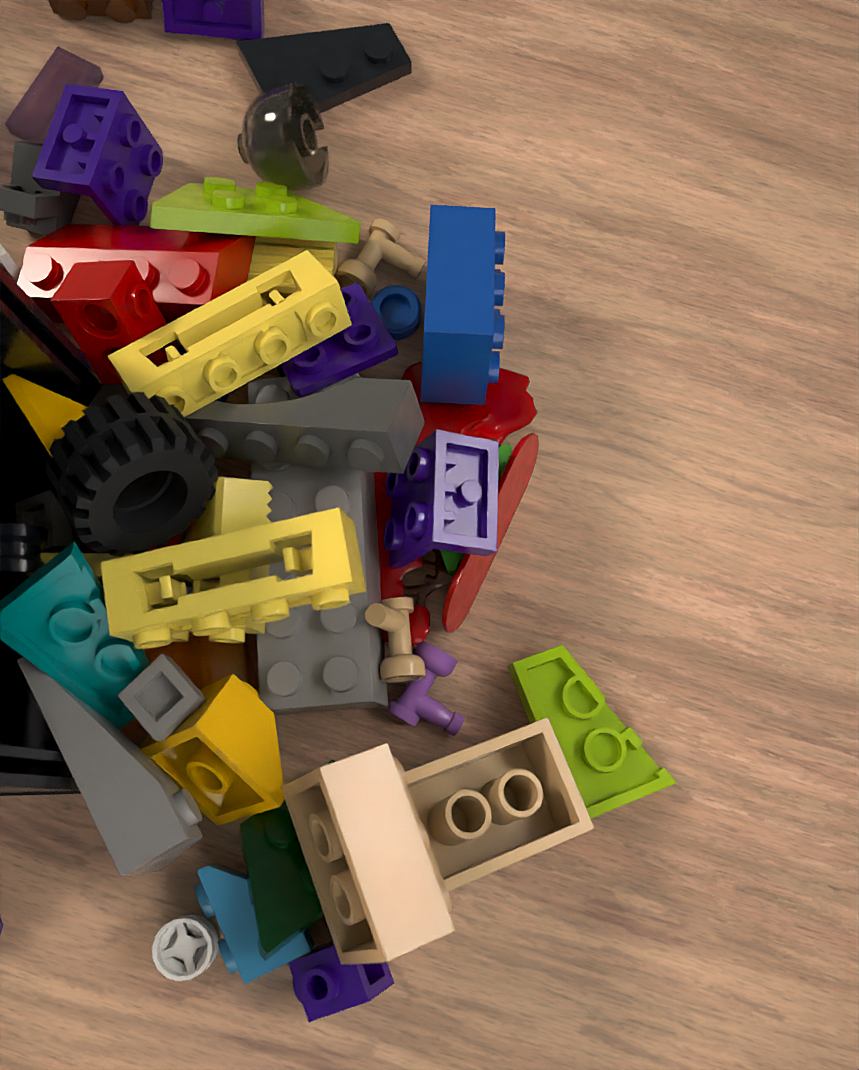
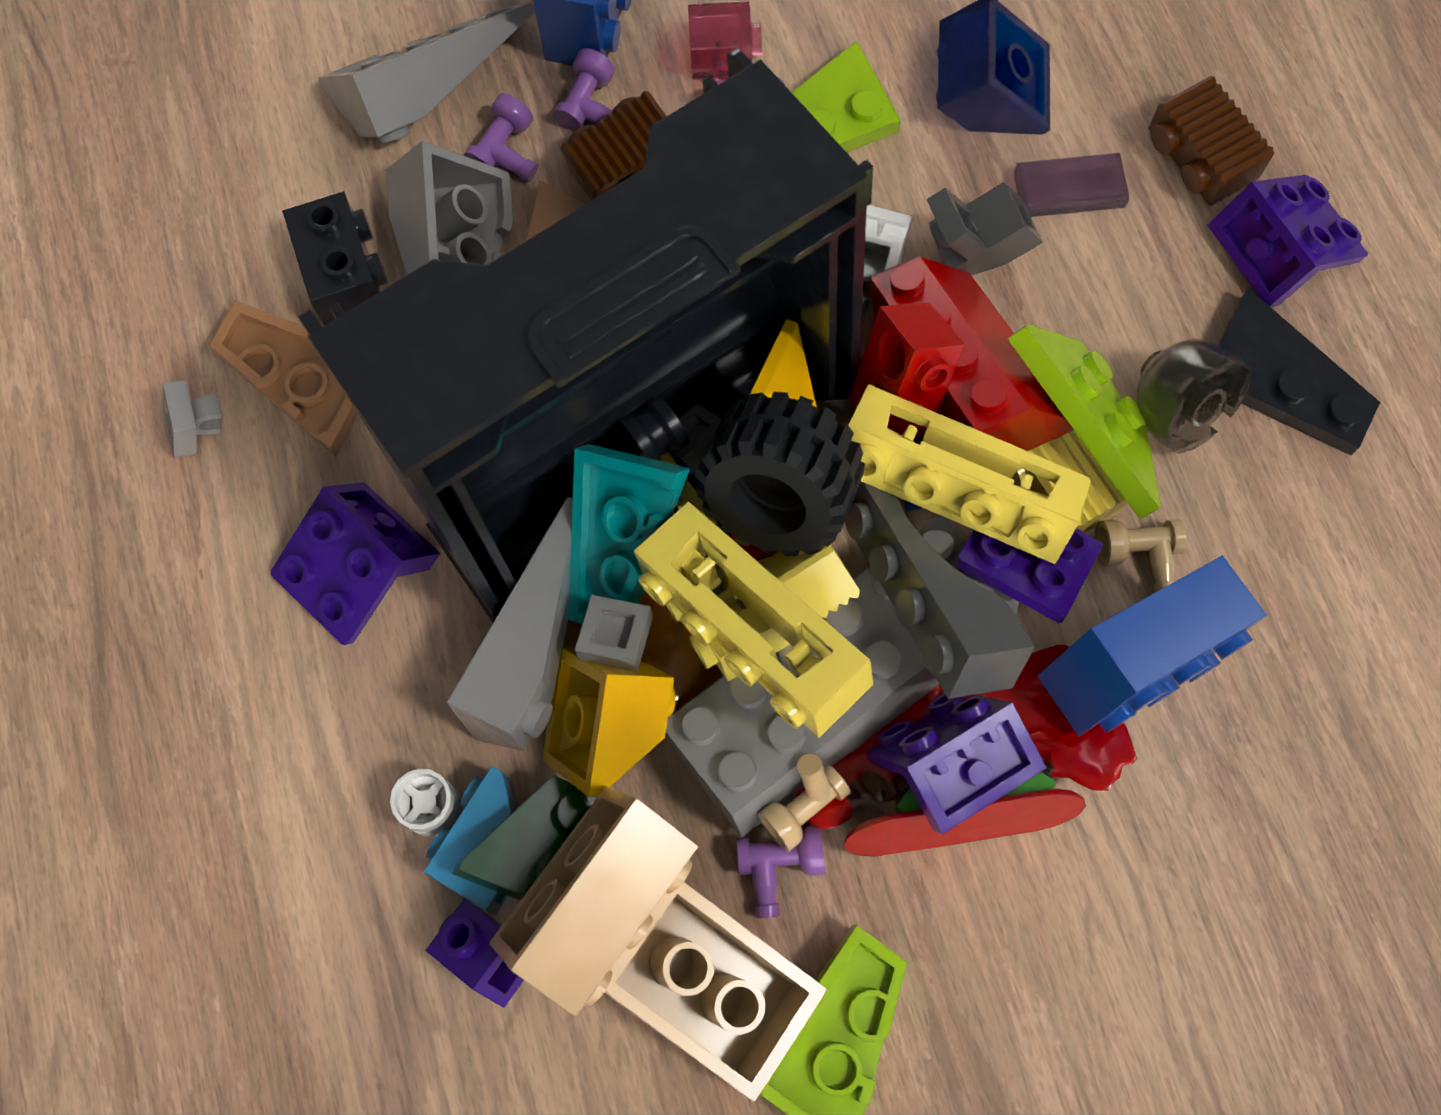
camera: 65 degrees right, 5 degrees down
(102, 152) = (1047, 255): dark purple bracket -> none
(398, 310) = (1105, 595): blue tile -> none

